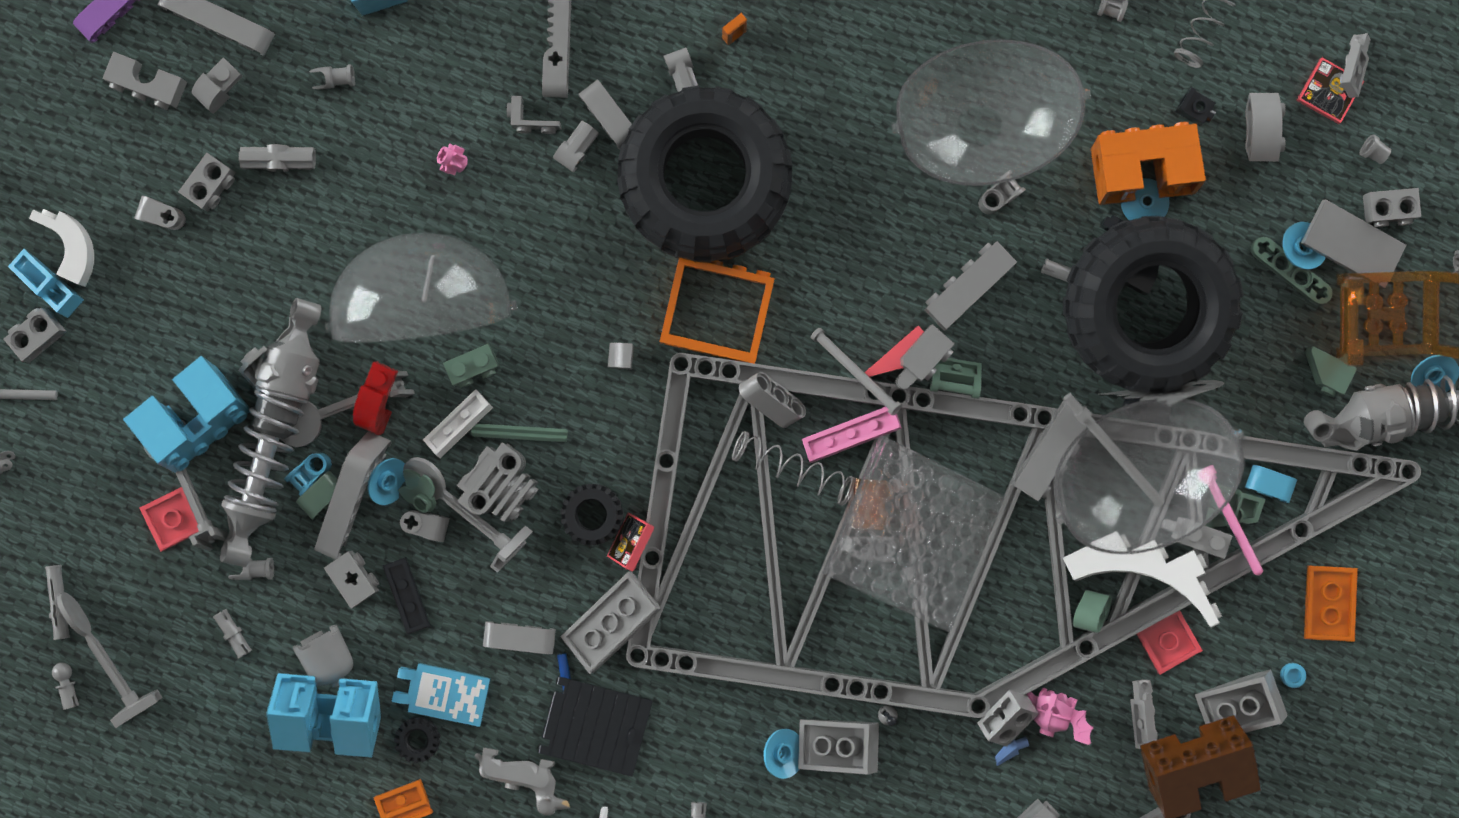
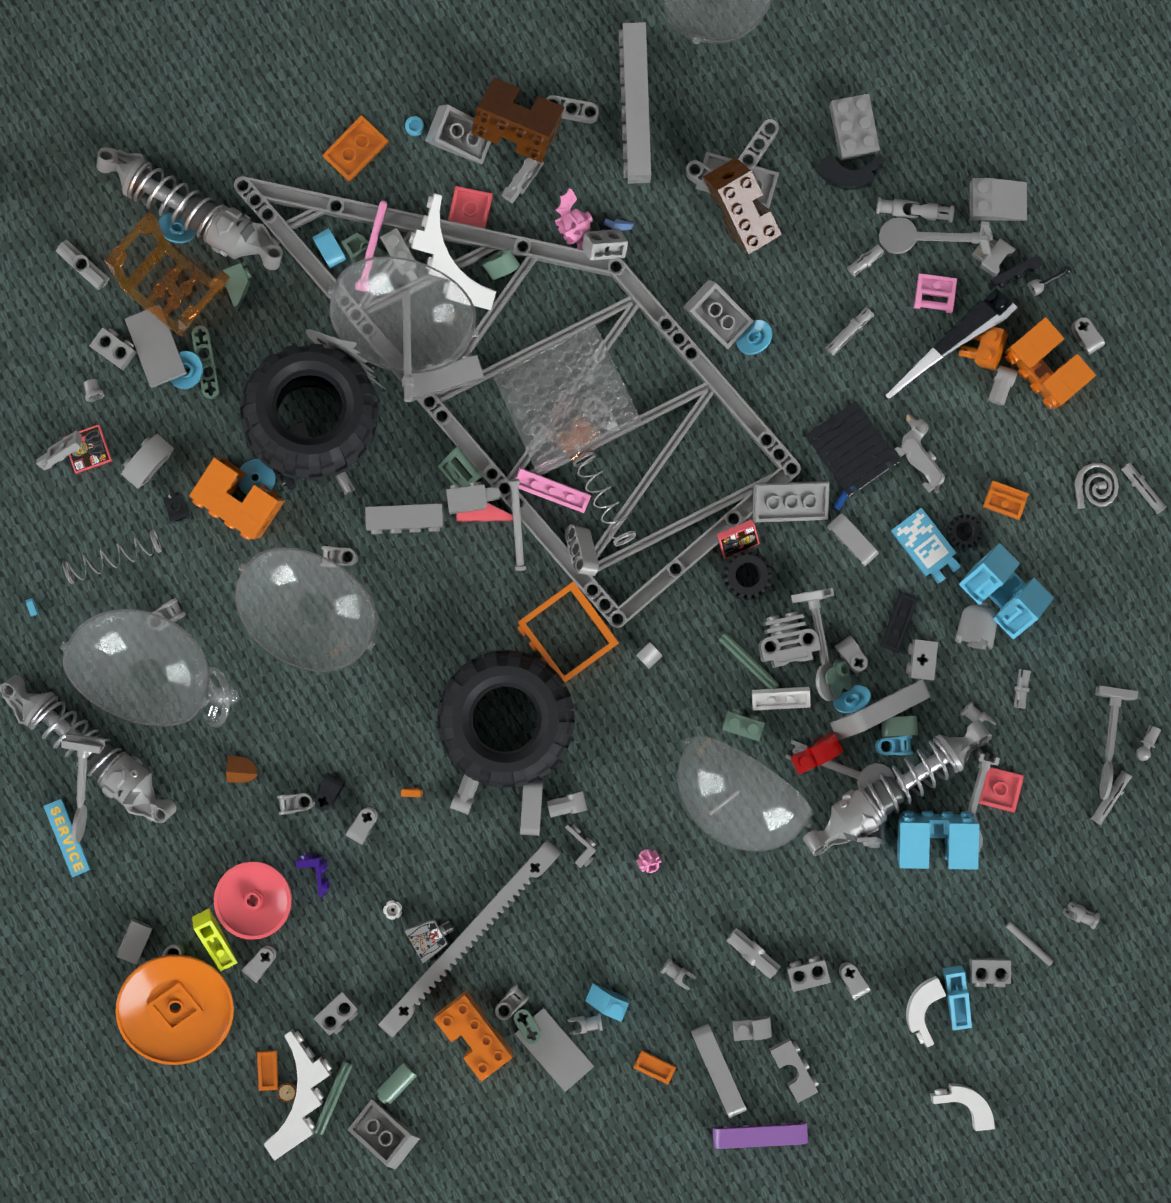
camera: 140 degrees left, 0 degrees up
(889, 717) = (672, 305): light grey hinge -> none

